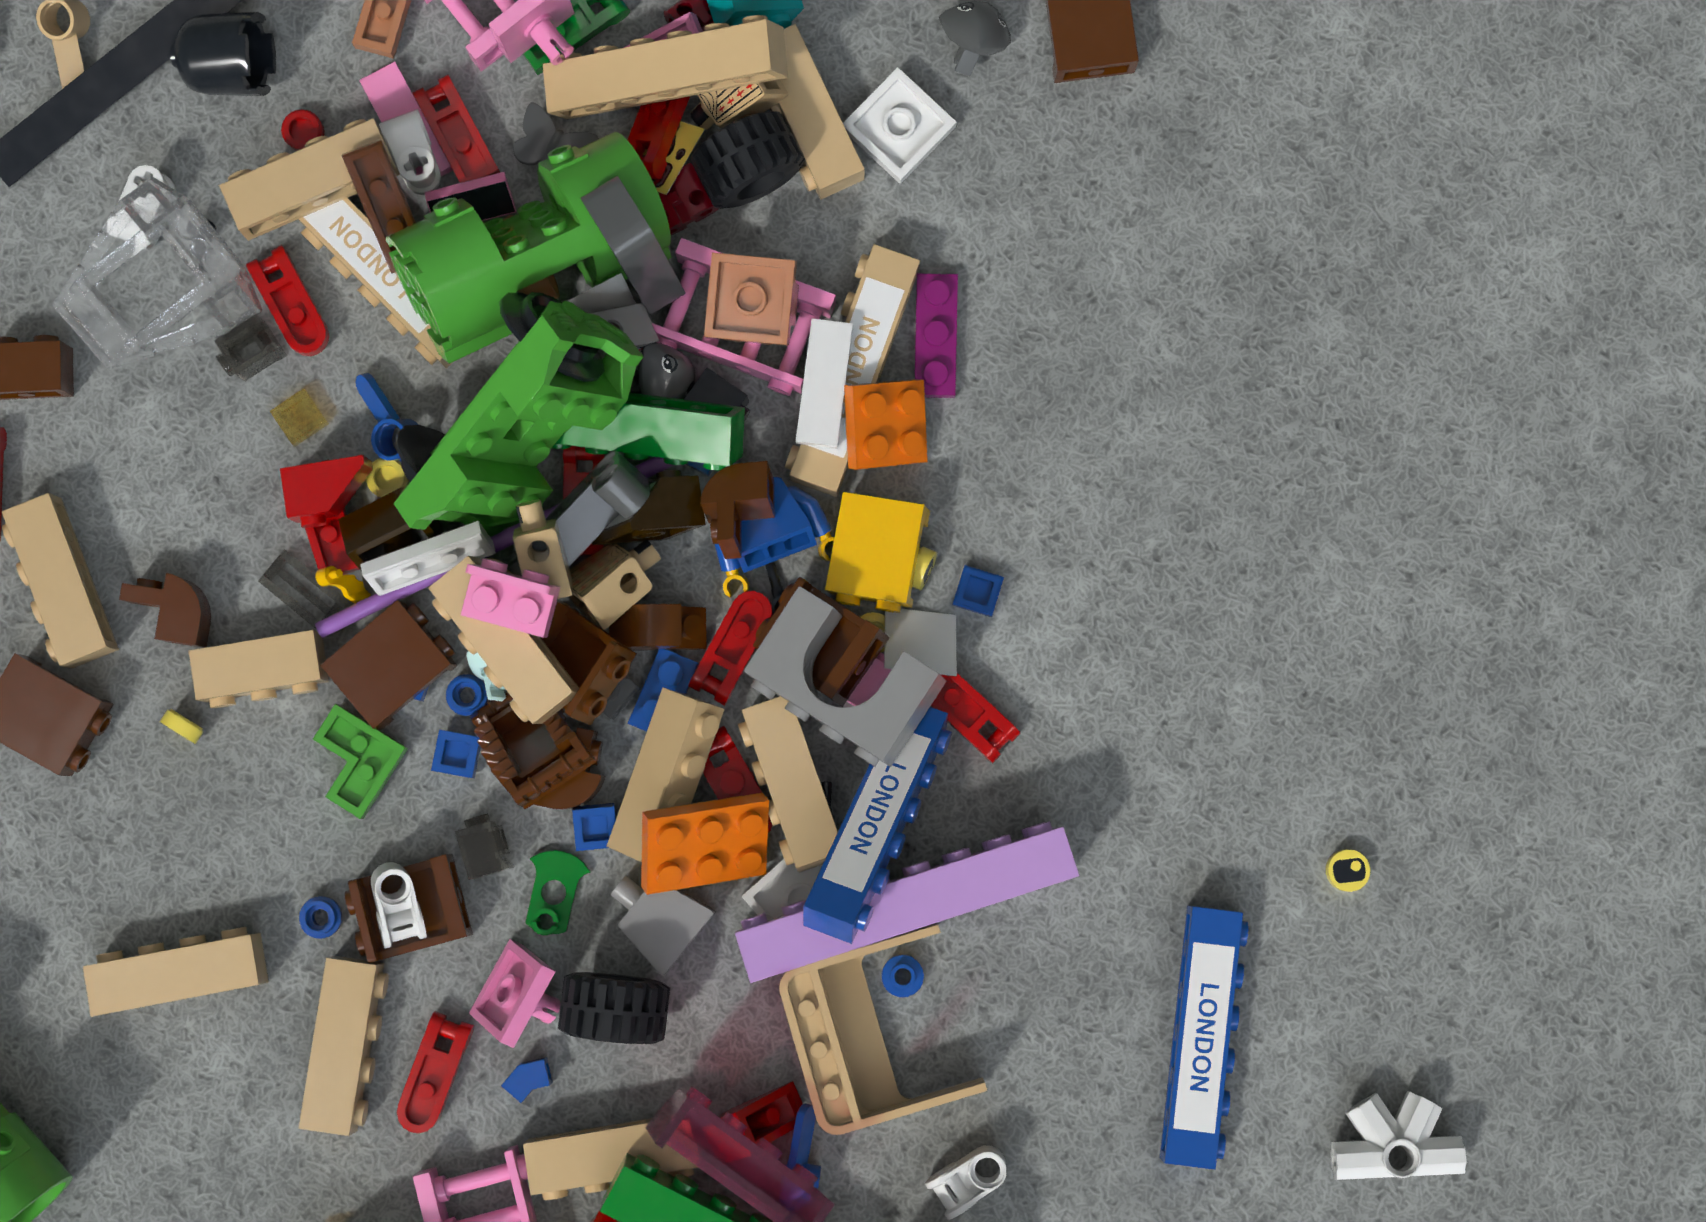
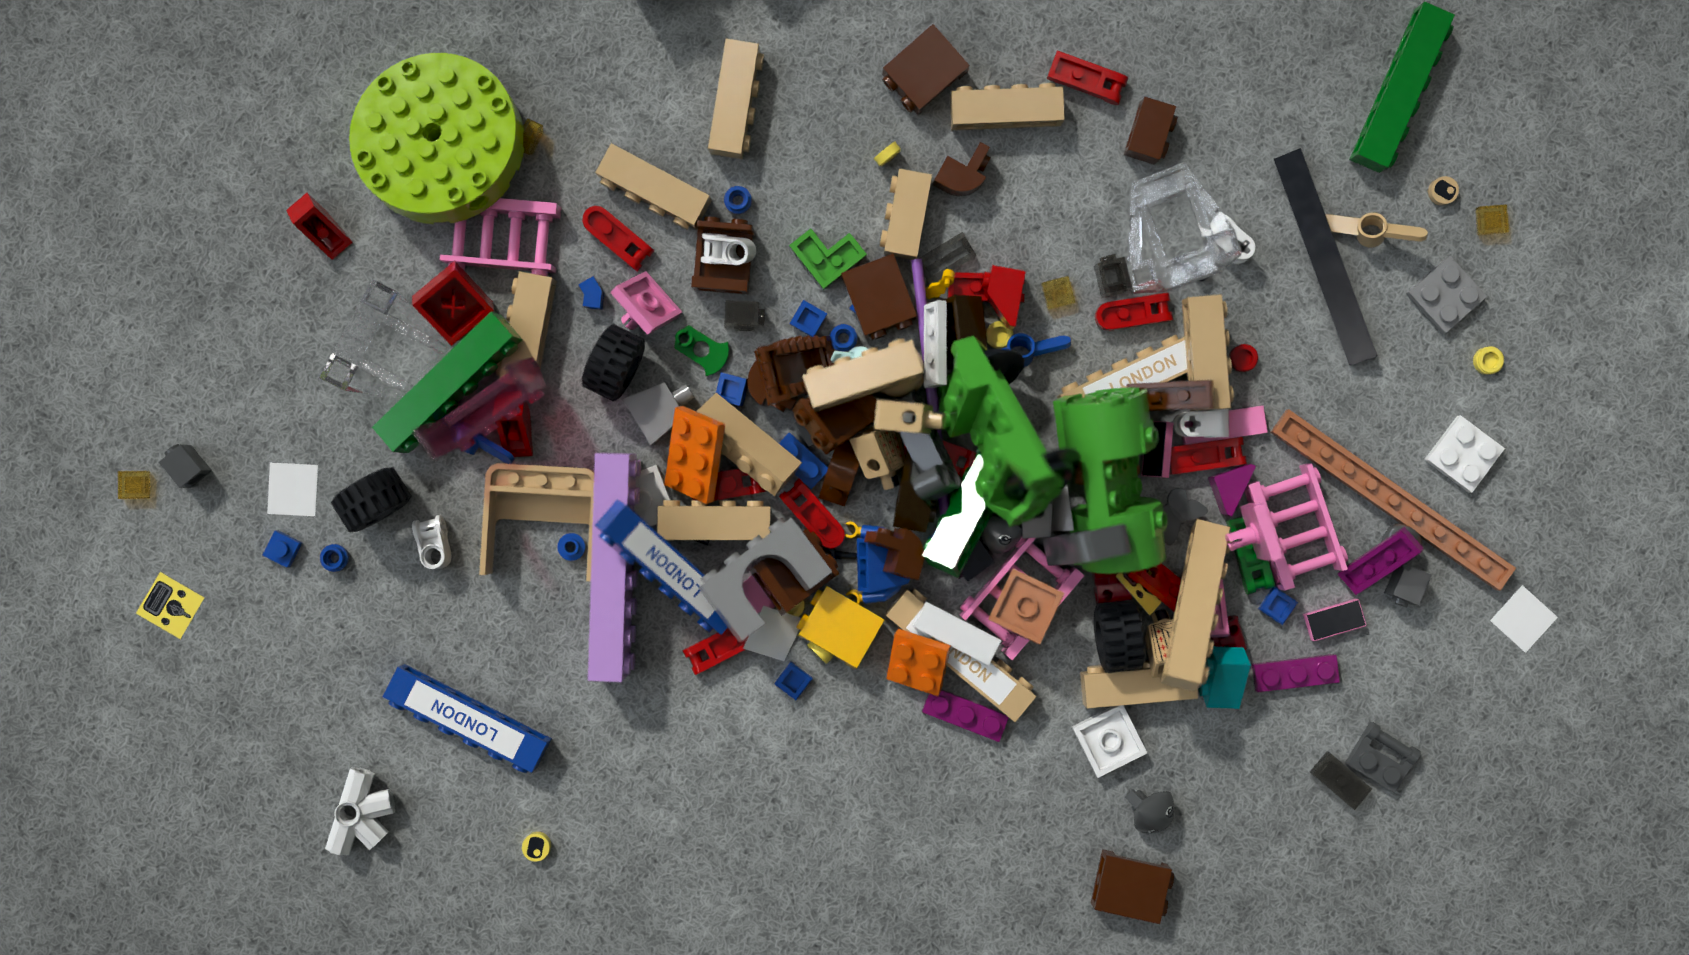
camera: 110 degrees right, 5 degrees up
(225, 54) = (1310, 325): black cylinder -> none
(489, 85) = (1230, 486): none -> magenta slope
(510, 600) = (884, 389): bright pink bracket -> none

